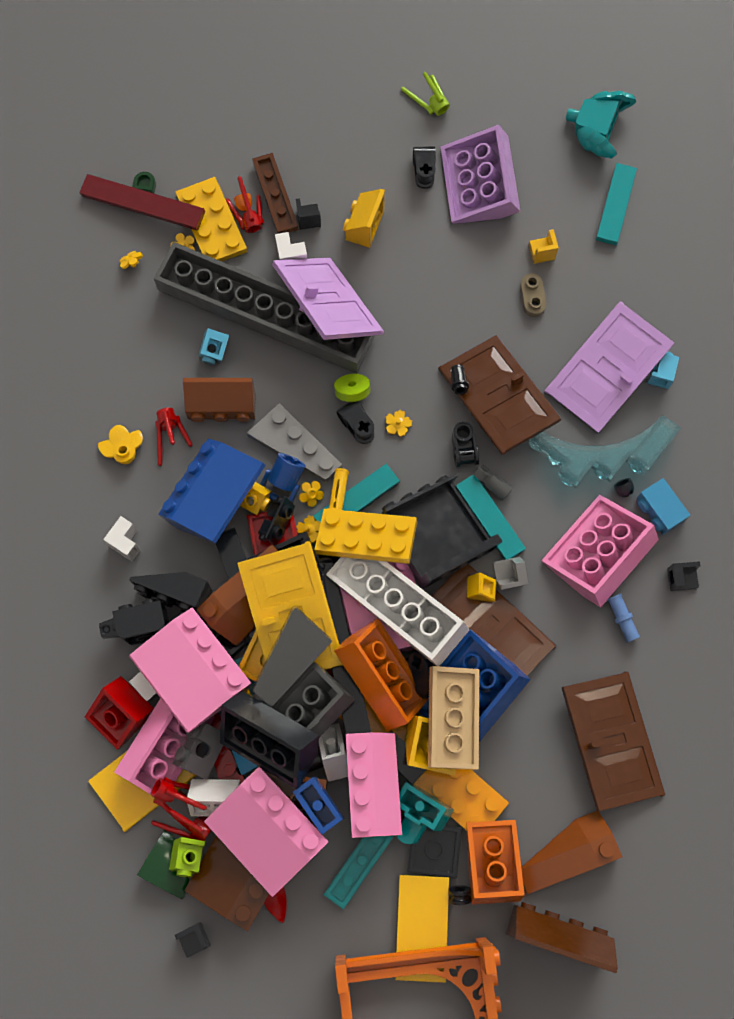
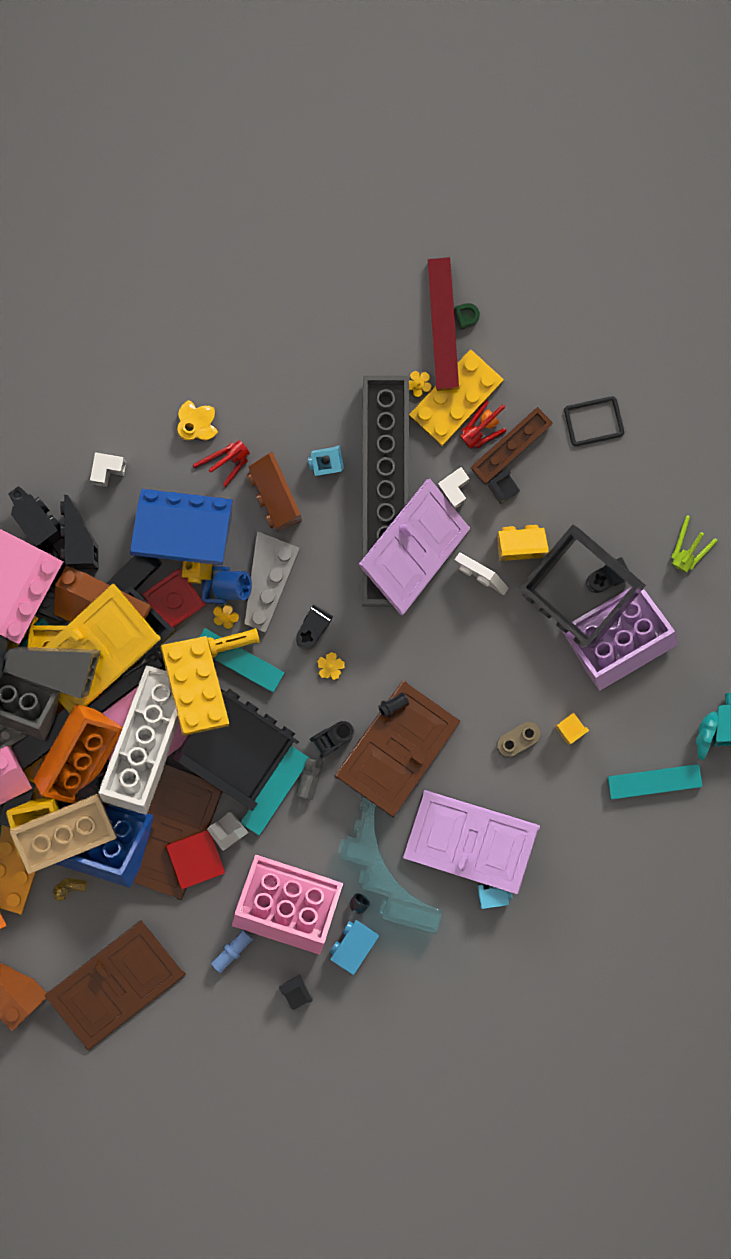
camera: 65 degrees right, 10 degrees up
(131, 259) = (379, 341): yellow plant -> none
(281, 511) = (193, 598): black hinge -> none
(294, 147) = (588, 403): none -> black piece
(310, 526) = (191, 629): yellow plant -> none
(352, 387) = (351, 605): lime piece -> none
(374, 260) = (483, 574): none -> white wing
(411, 150) = (549, 610): none -> black window
(481, 587) = (203, 810): yellow slope -> none
(499, 746) = (67, 885): none -> clear yellow arm
(524, 614) = (195, 859): none -> red tile

